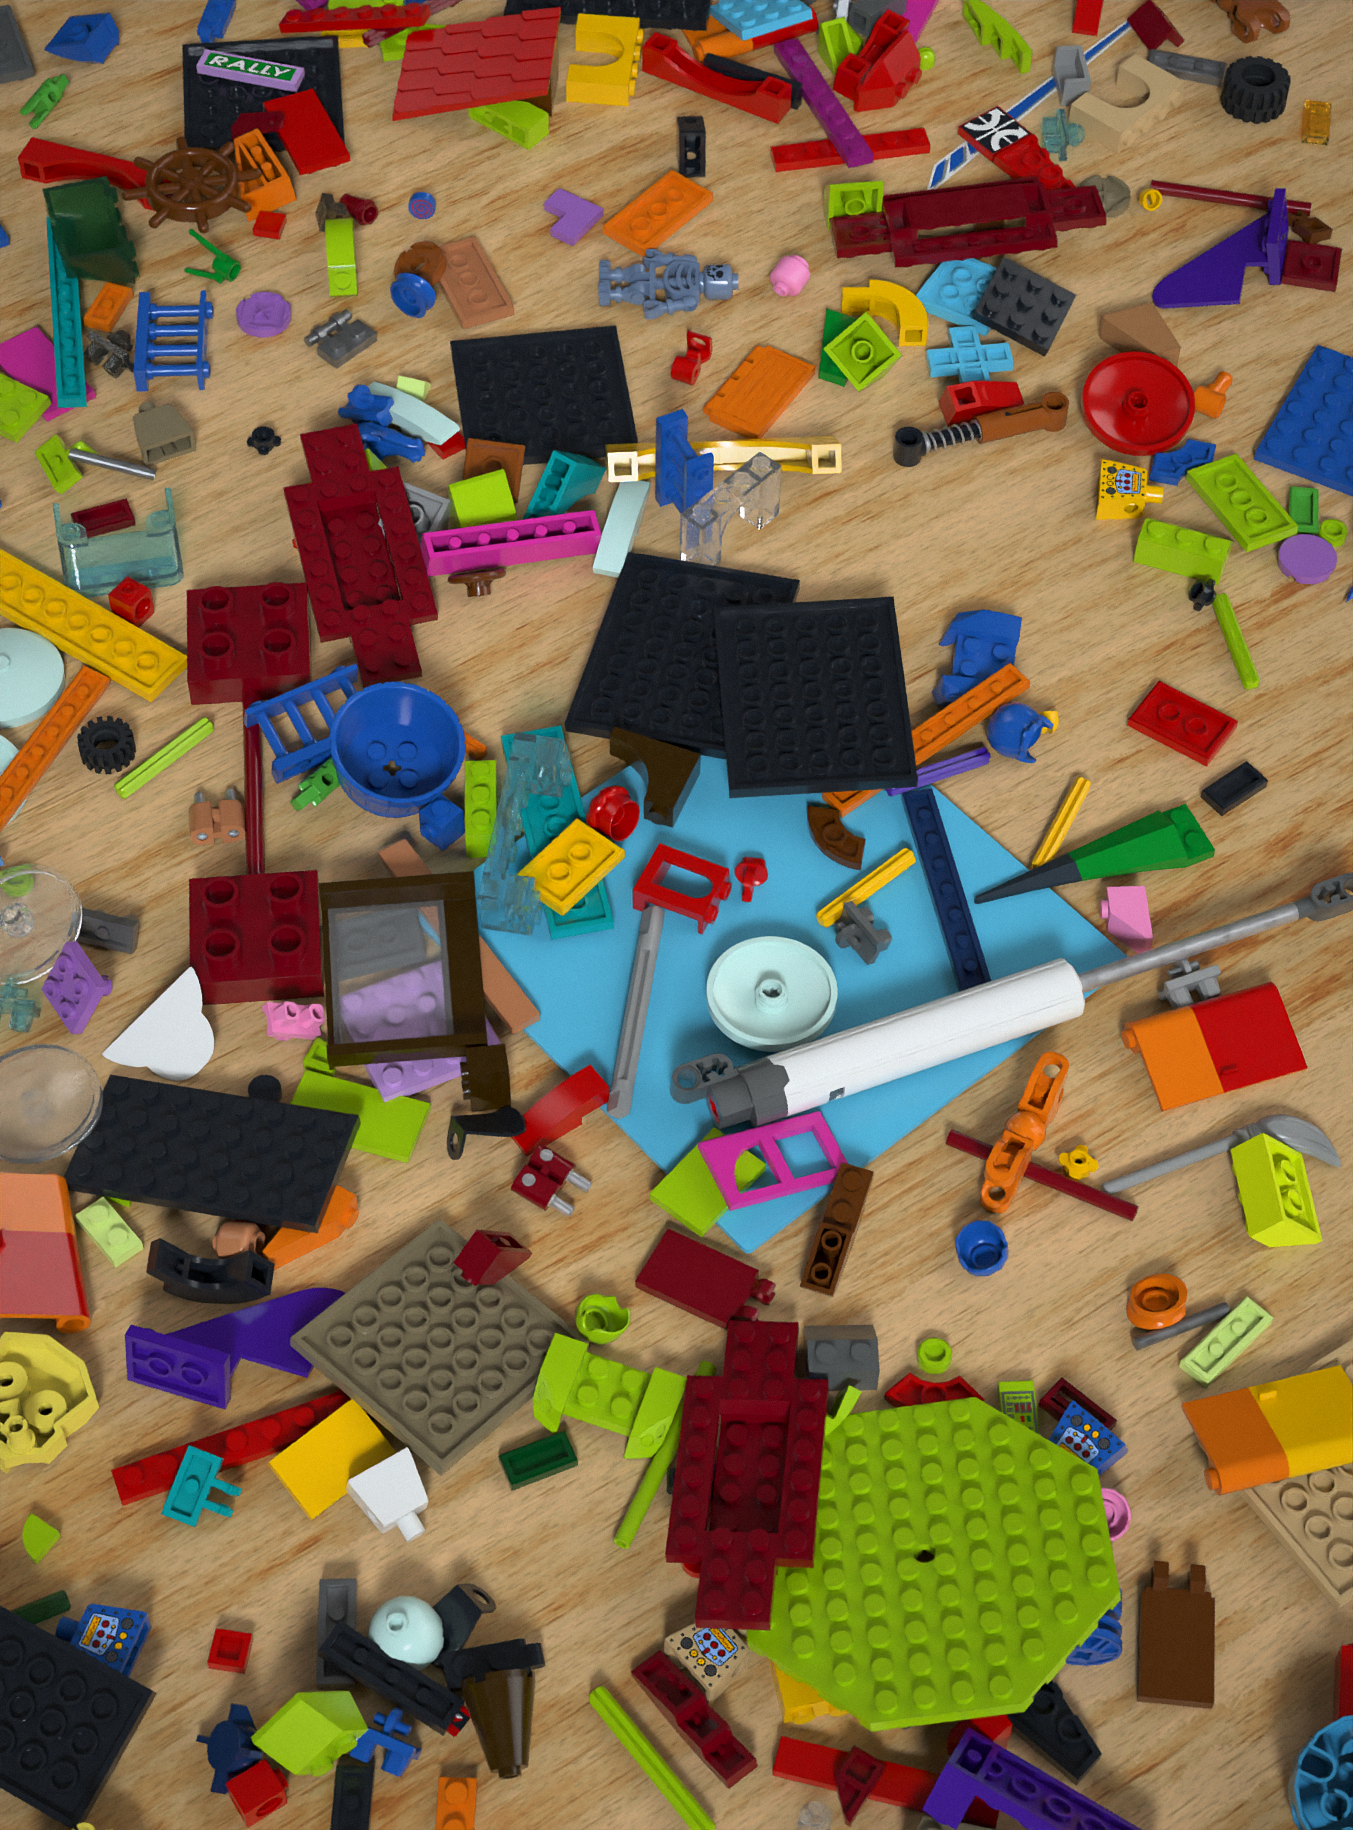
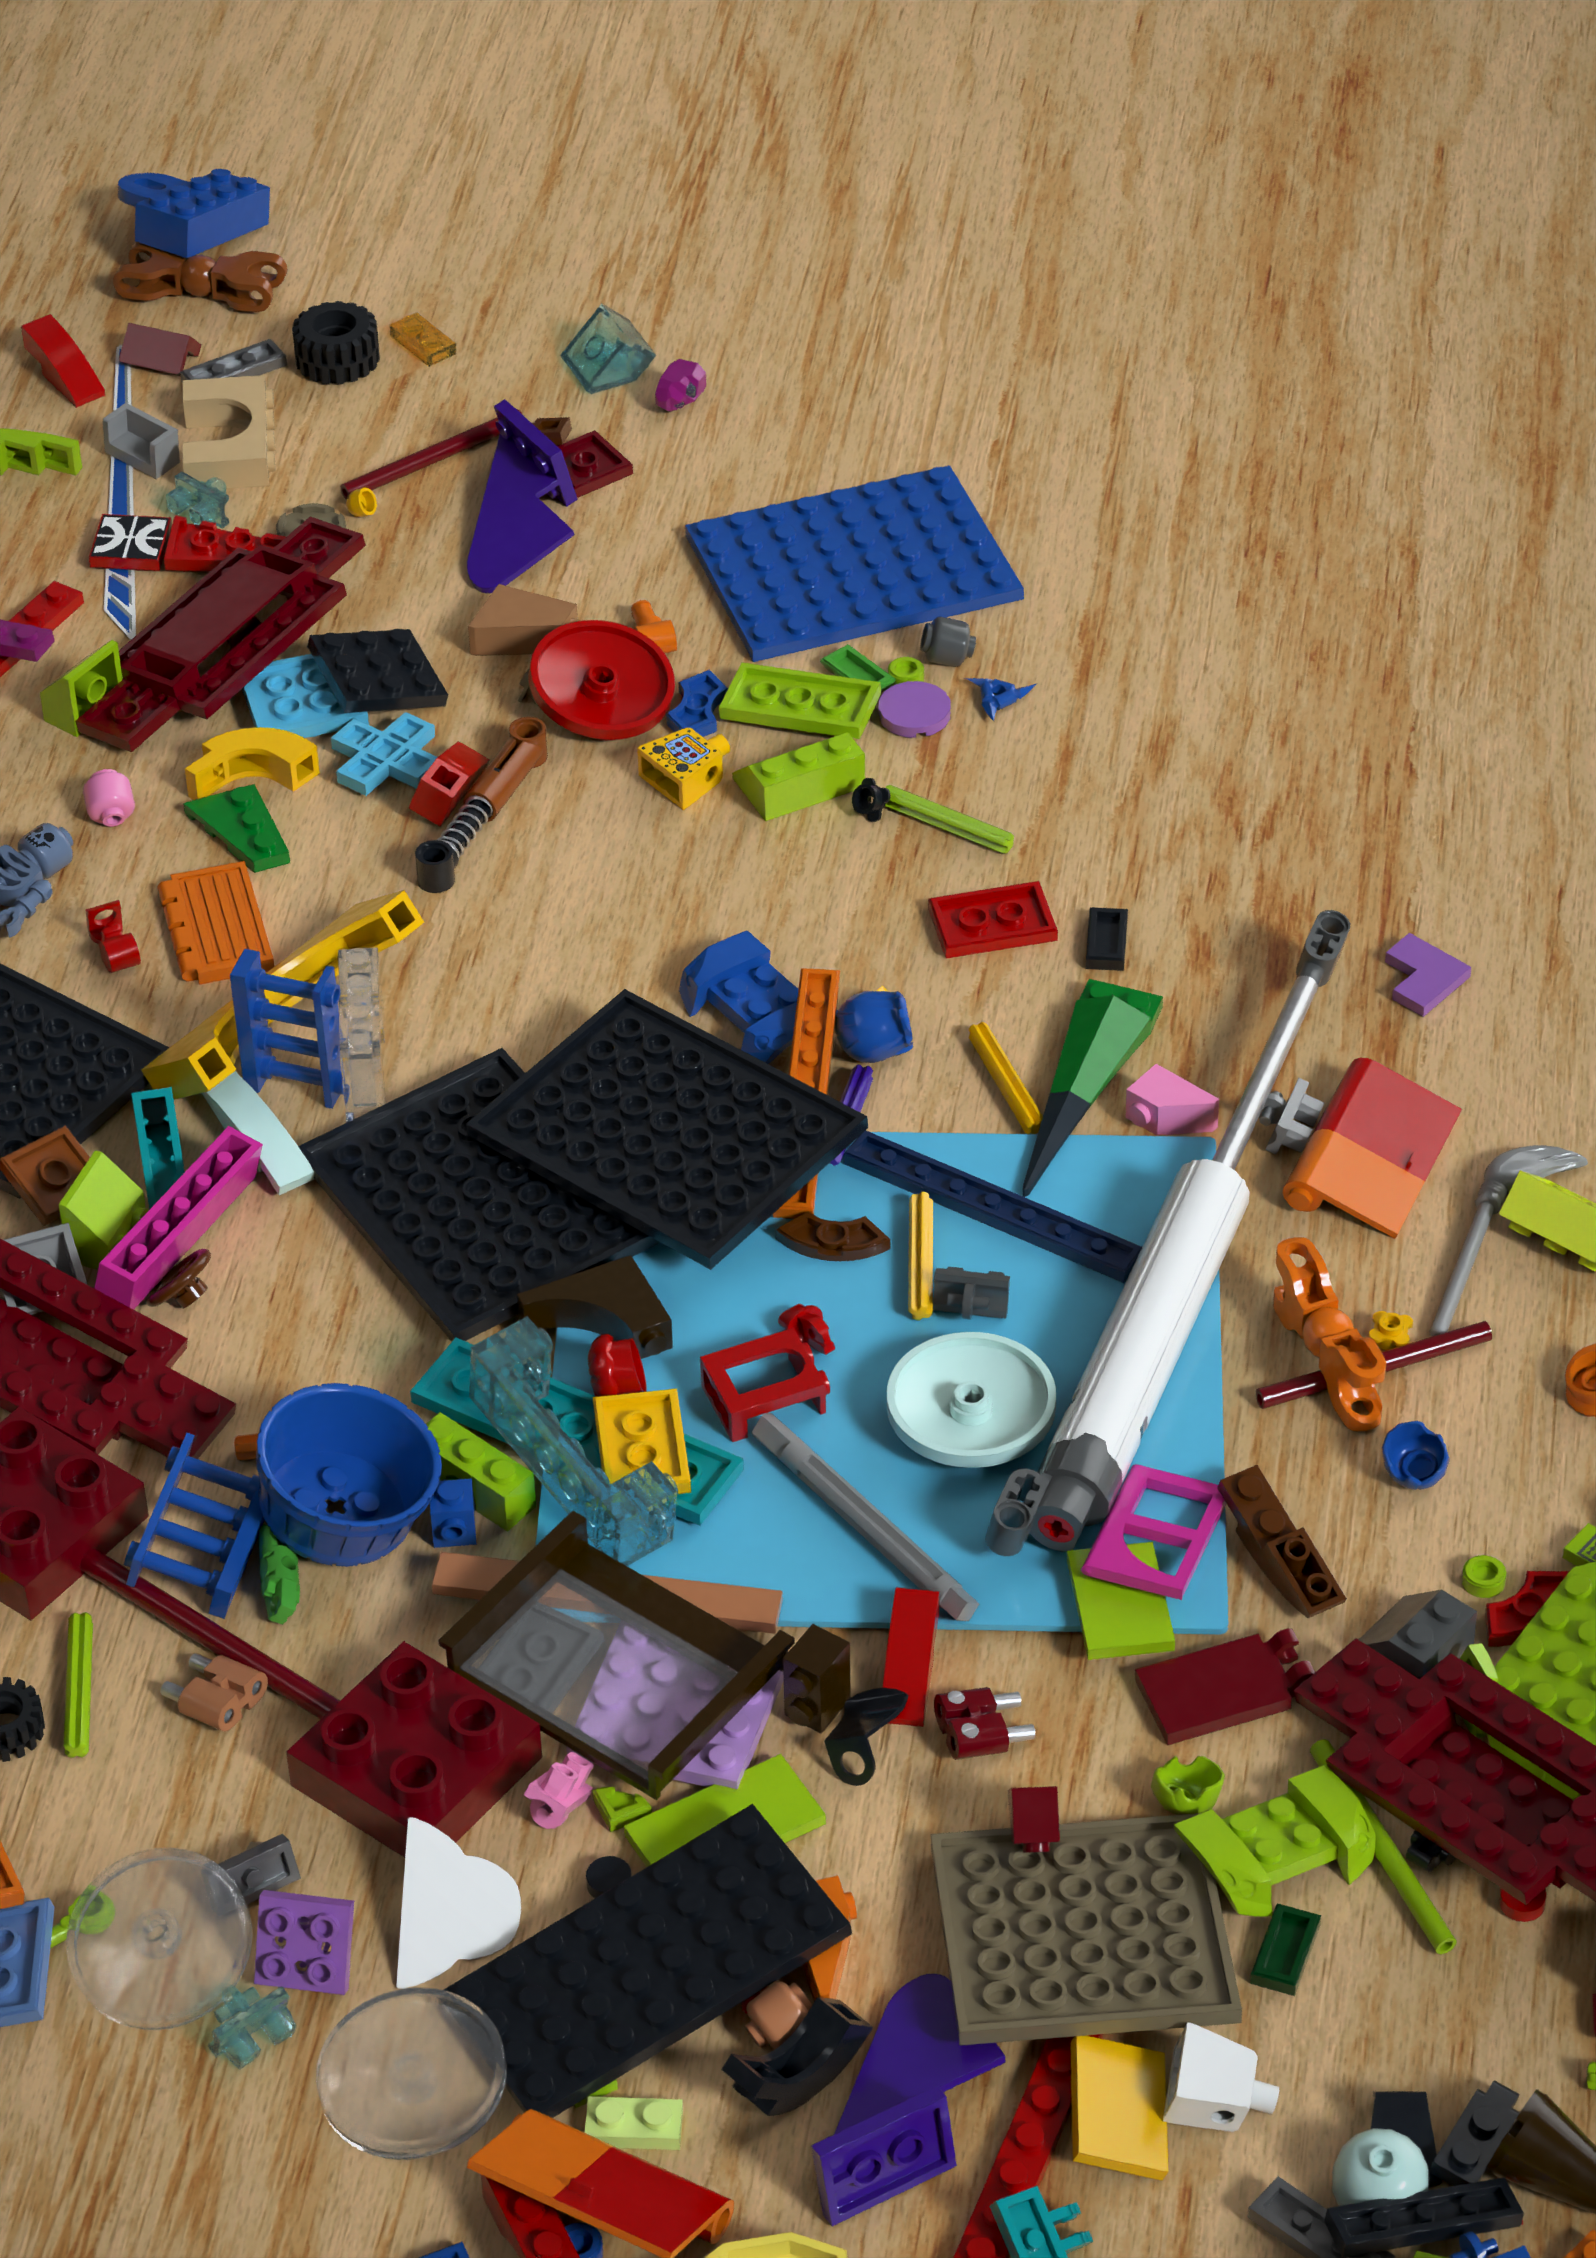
camera: 45 degrees left, 10 degrees down
(863, 352) = (288, 808): lime slope -> none

